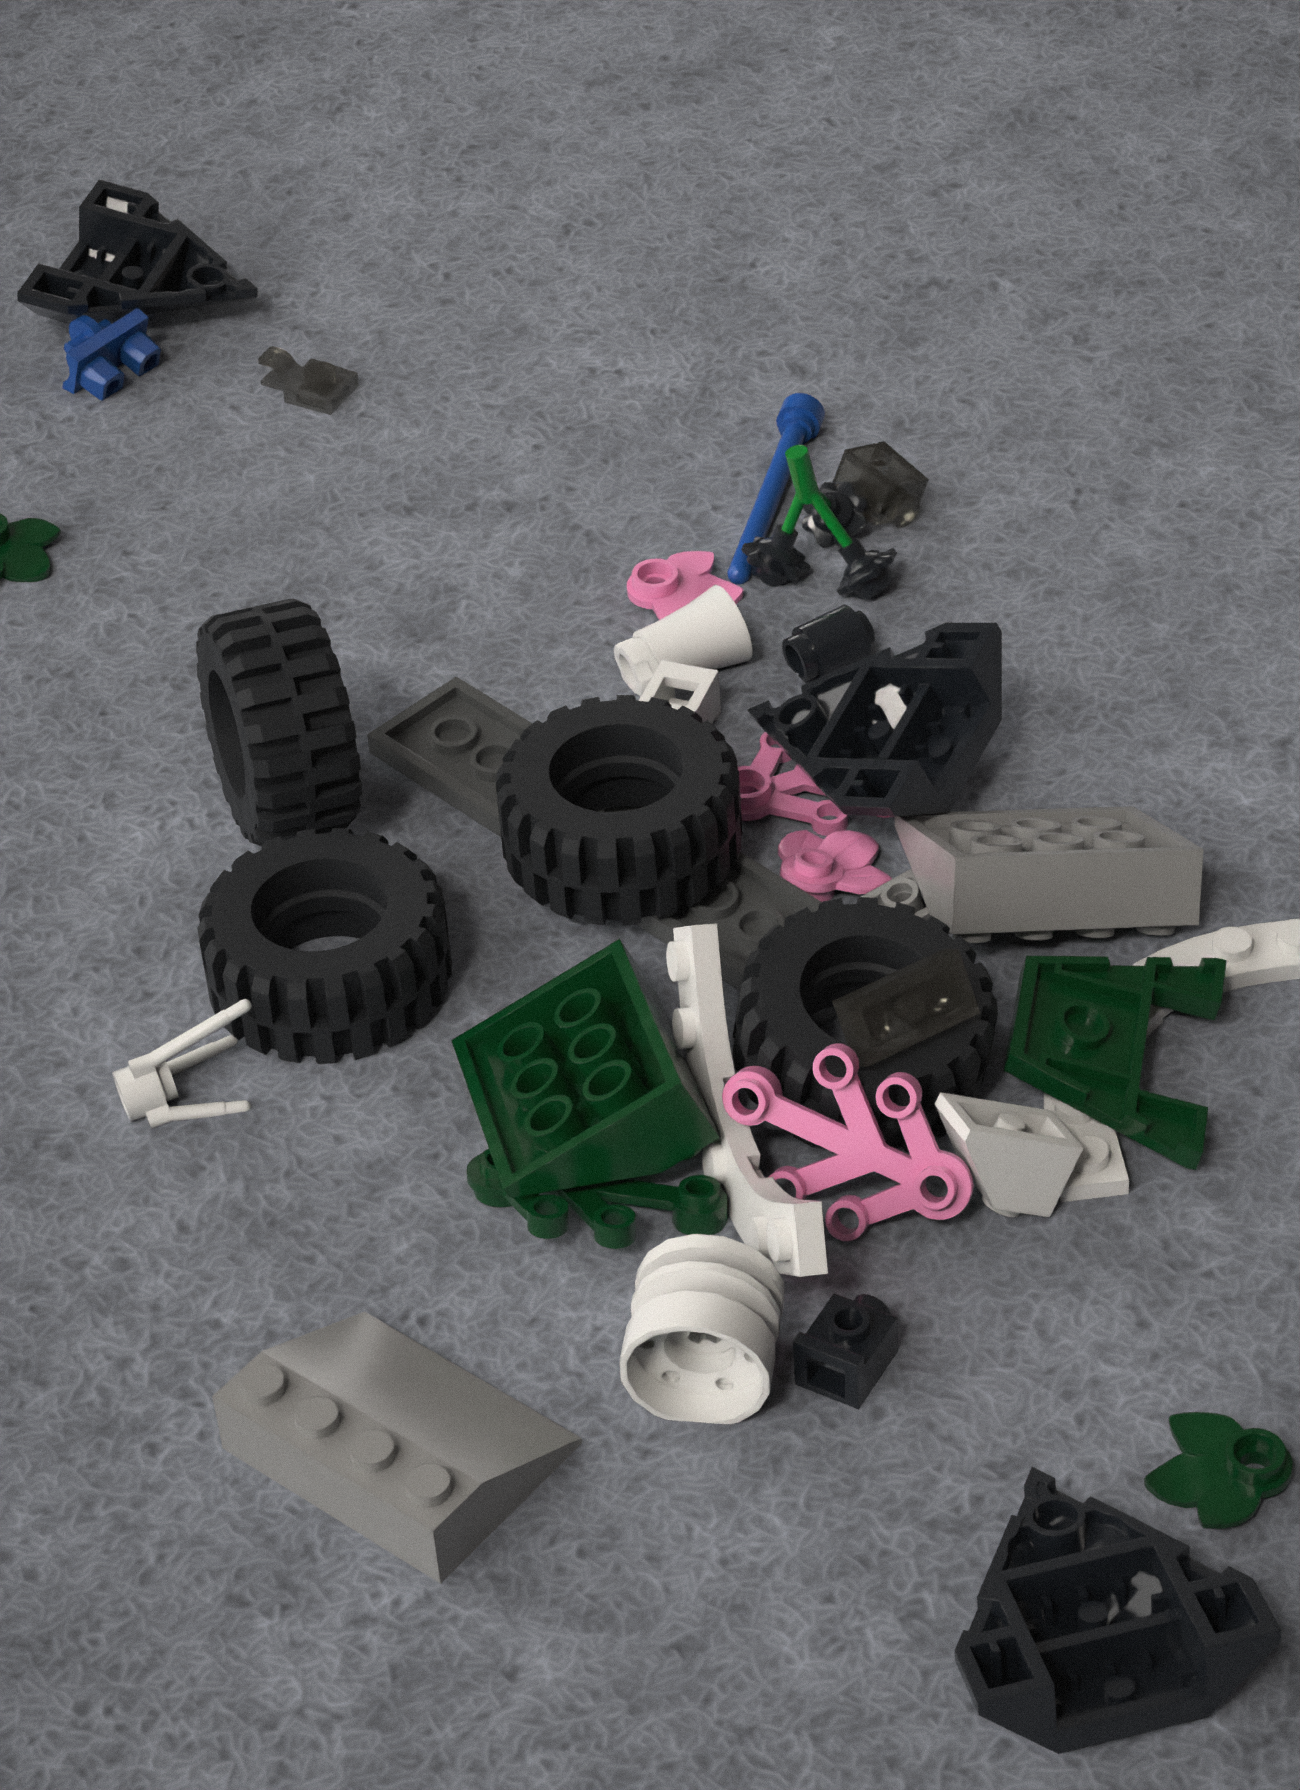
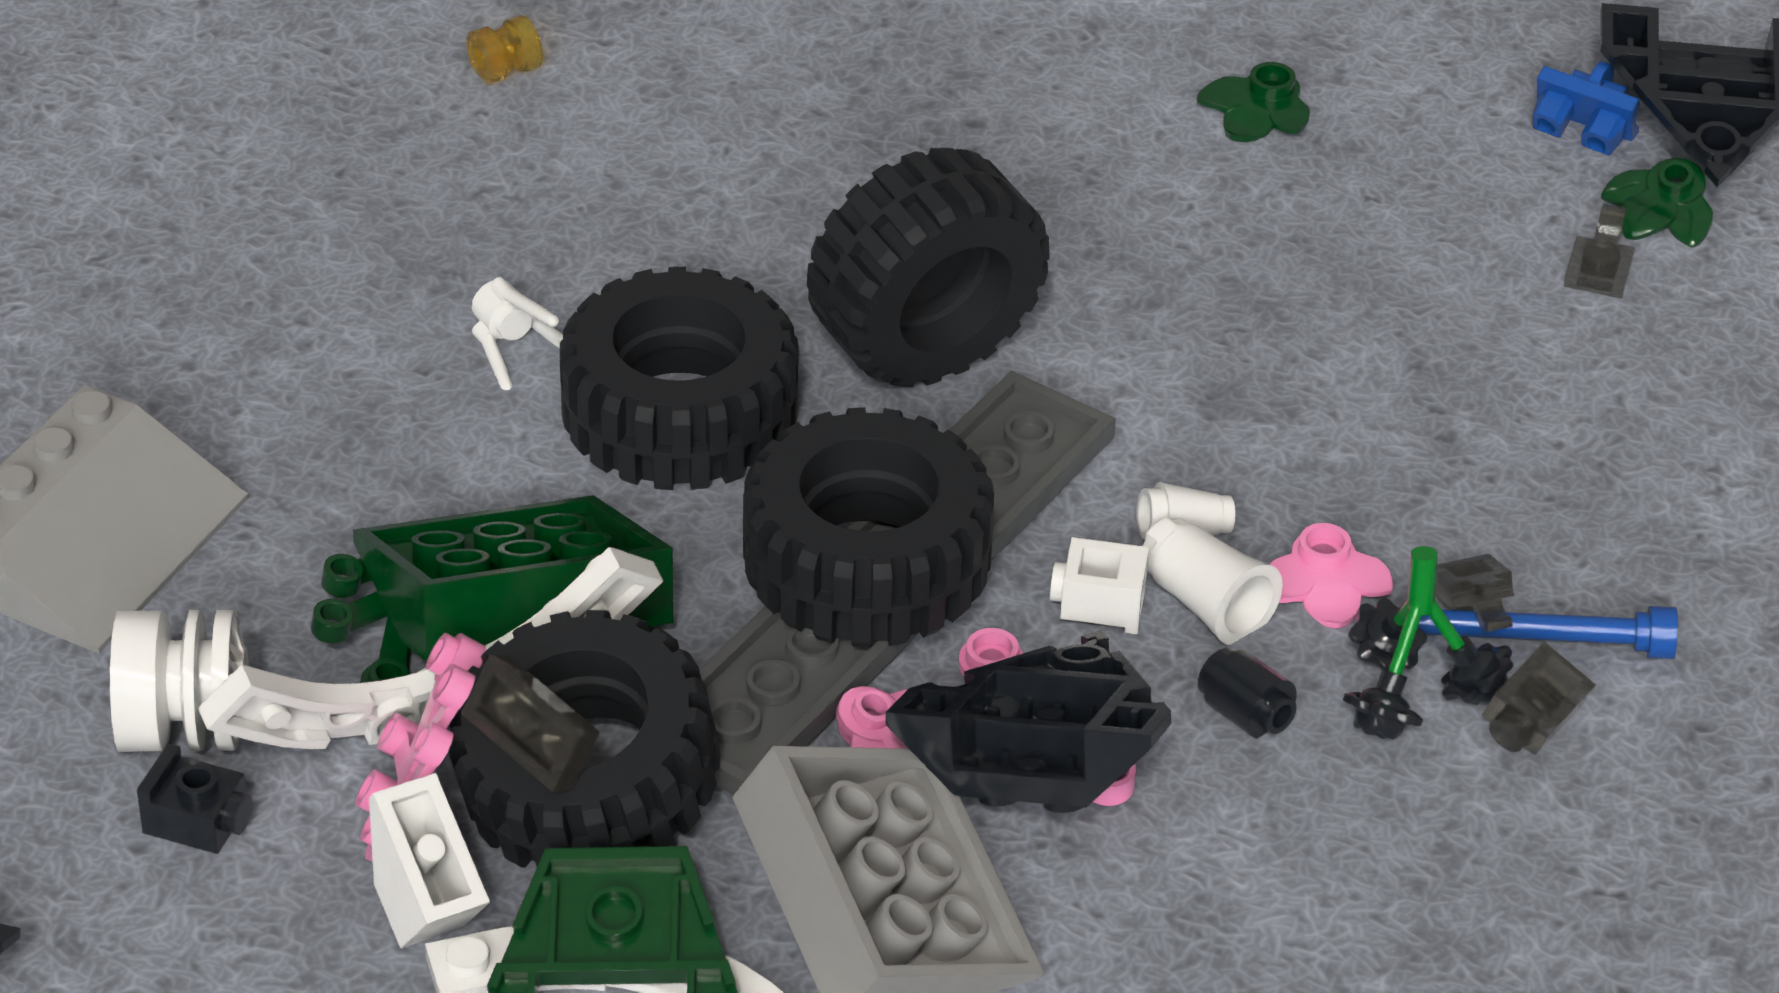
camera: 75 degrees right, 0 degrees up
(243, 336) = (1659, 204): none -> dark green plate
(587, 659) = (1206, 509): none -> white cone
(729, 498) = (1476, 586): none -> clear smoke plate

